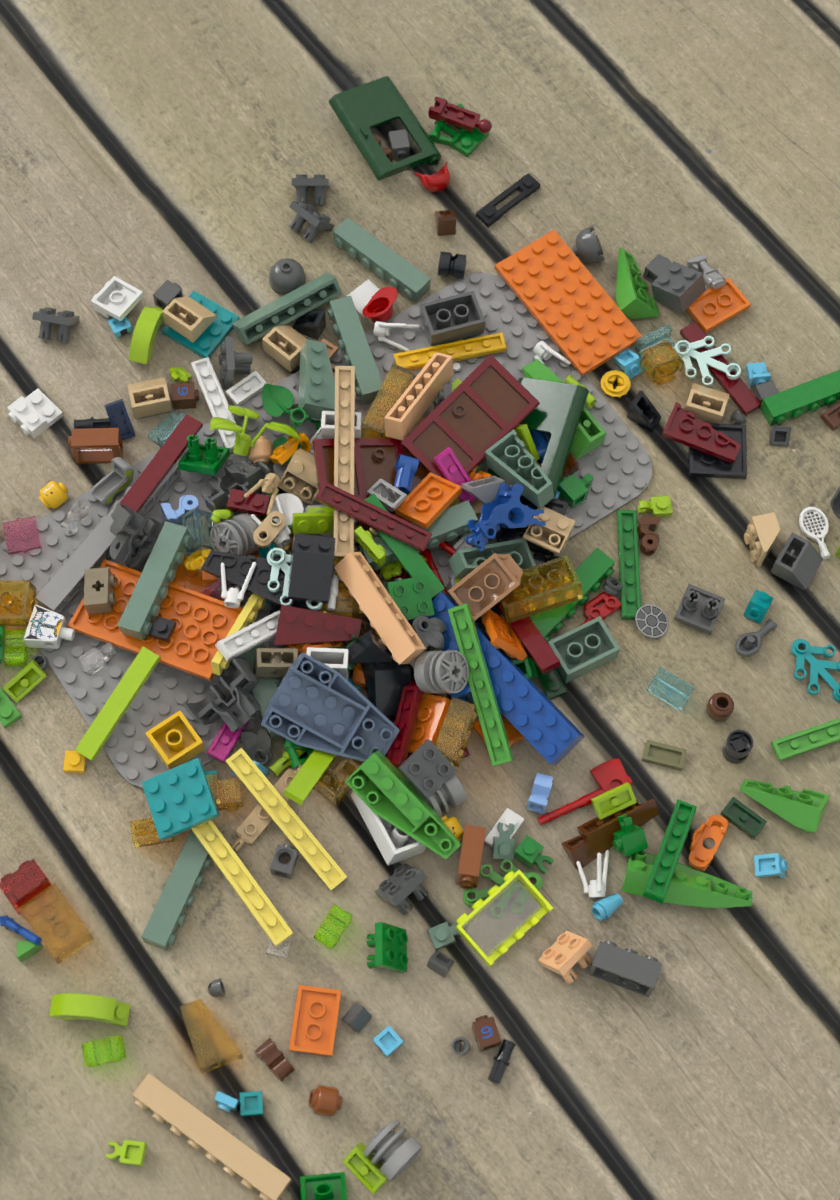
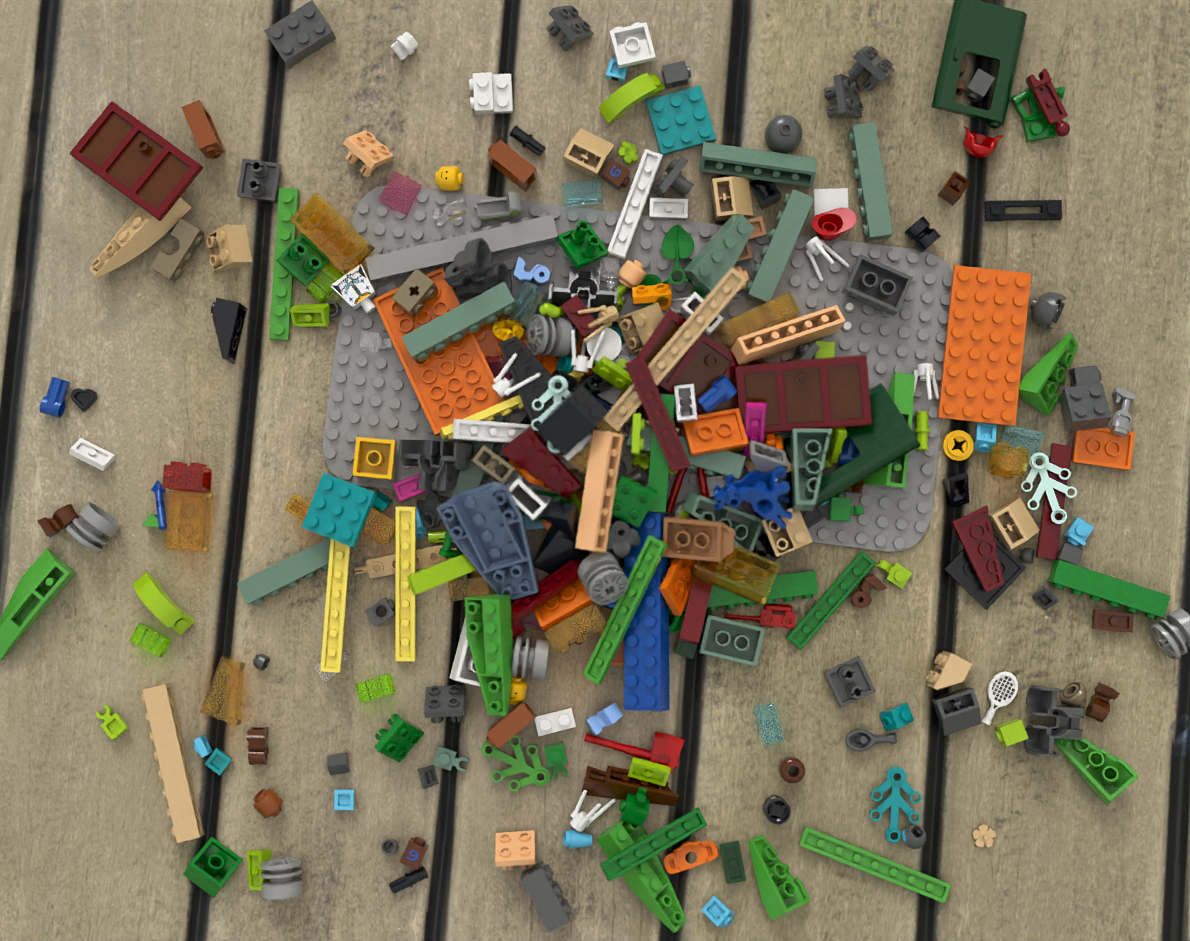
camera: 40 degrees right, 20 degrees up
(74, 762) = (298, 408): yellow plate -> none
(117, 703) = (358, 394): lime tile -> none
(119, 418) = (547, 156): dark blue tile -> none
(161, 464) = (544, 225): dark red tile -> none
(162, 629) = (434, 365): black plate -> none
(188, 317) = (673, 110): tan slope -> none
(244, 441) = (613, 240): lime plant -> none
(270, 529) = (575, 355): tan plate -> none
(315, 1020) = (307, 742): orange plate -> none
(427, 769) = (527, 642): dark grey plate -> none
(459, 350) = (853, 310): yellow tile -> none
(502, 916) = (495, 784): clear window -> none
(503, 846) = (542, 735): sand green plate -> none
(612, 586) = (800, 608): dark grey bush -> none
(651, 620) = (805, 659): sticker -> none
(664, 755) = (719, 766): olive tile -> none

